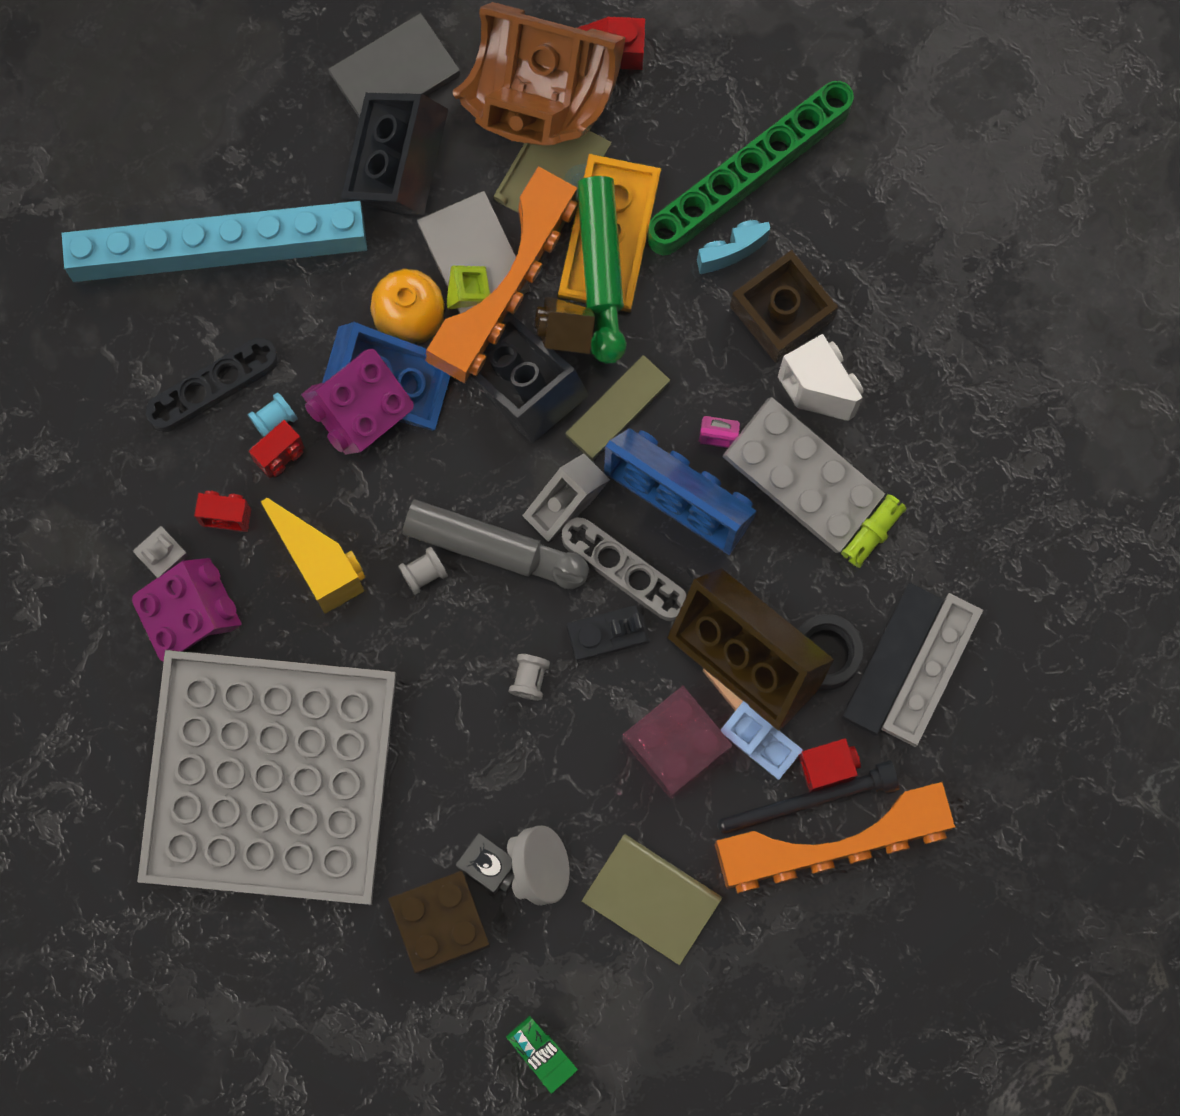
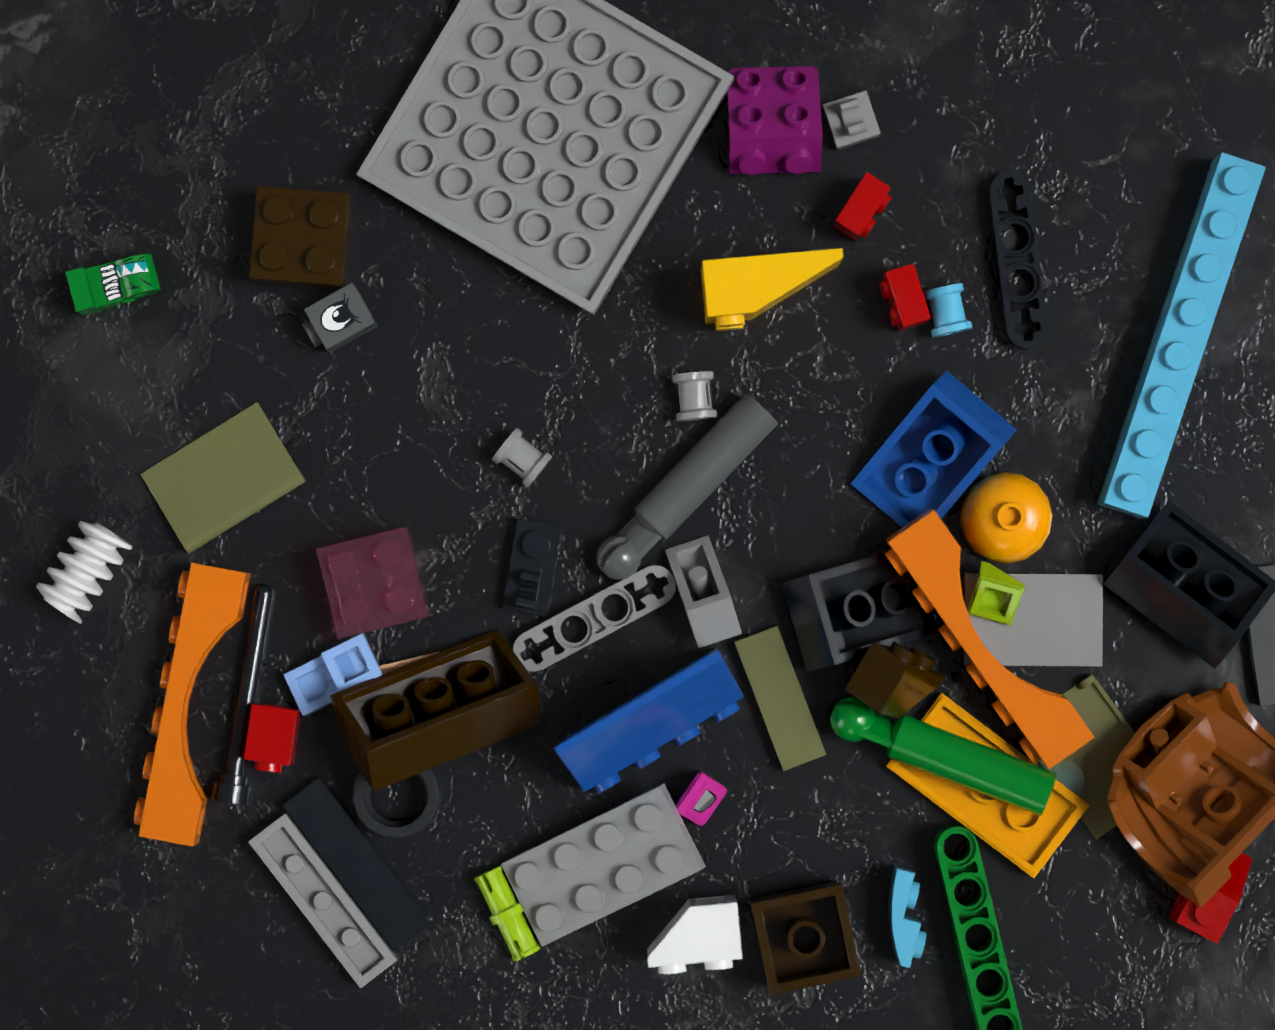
camera: 115 degrees right, 10 degrees up
(358, 403) = (912, 410): magenta bracket -> none
(539, 865) = (310, 371): light grey tile -> none
(774, 970) = (82, 569): none -> white piece

